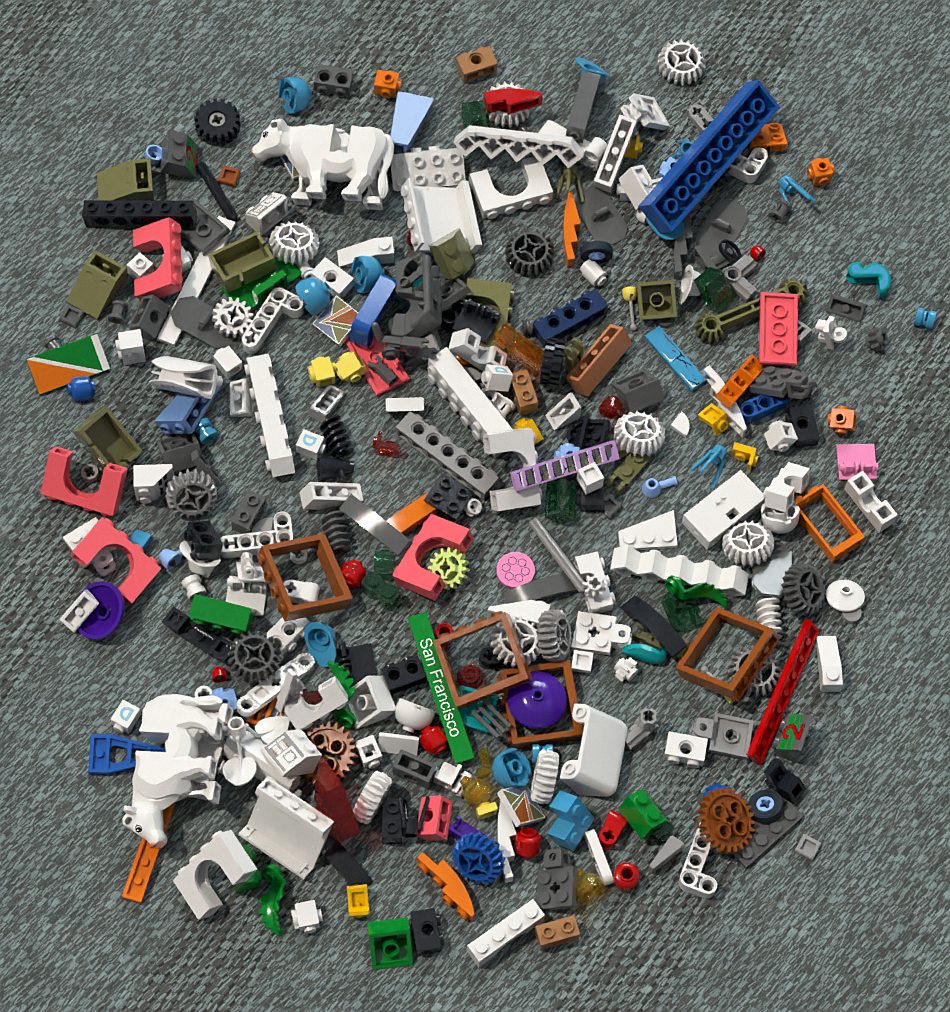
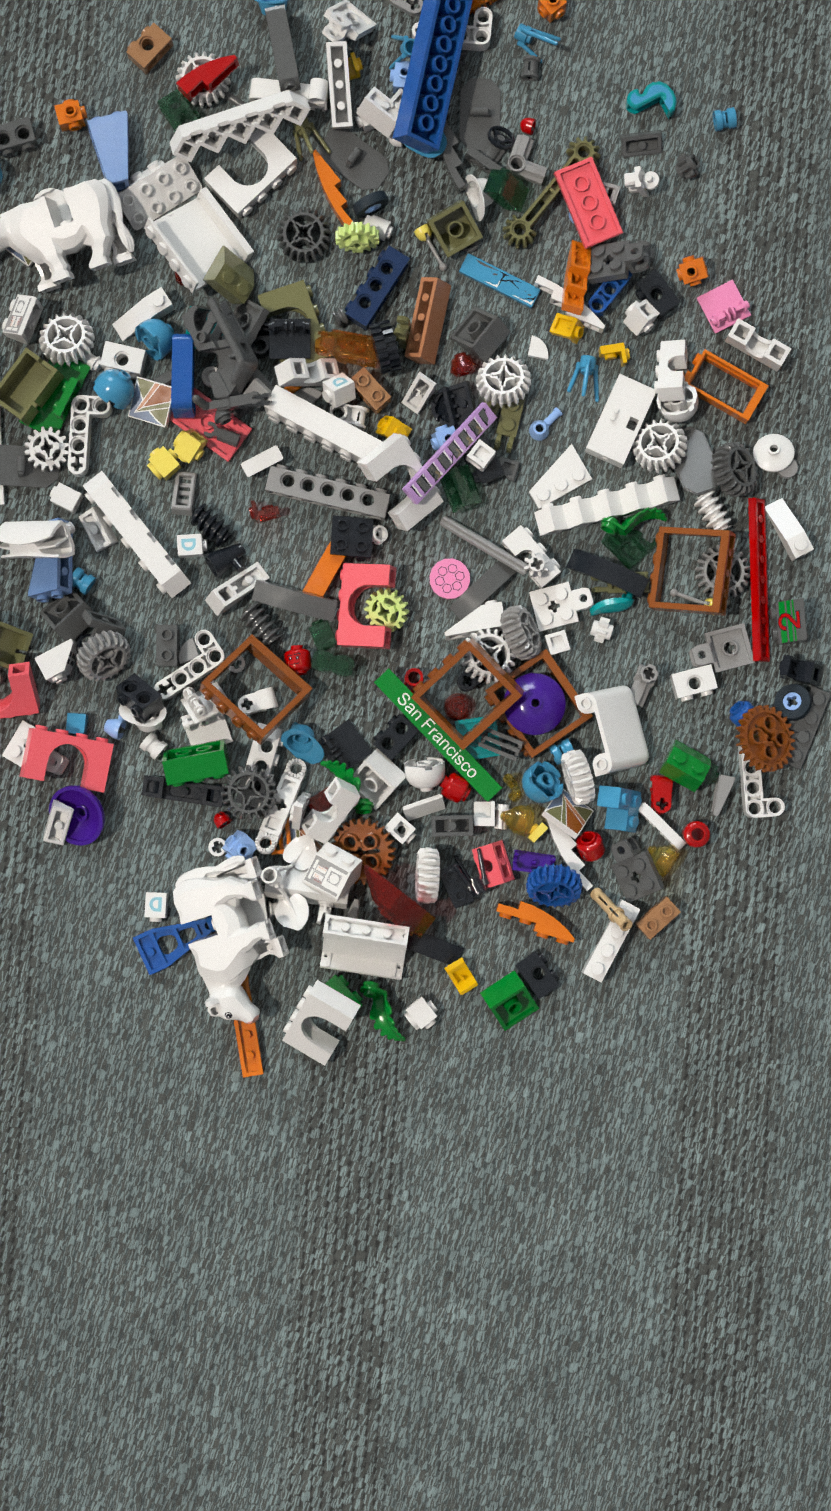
camera: 25 degrees left, 20 degrees up
(519, 907) = (622, 920): none -> tan pin
(572, 270) = (357, 237): none -> yellowish green gear

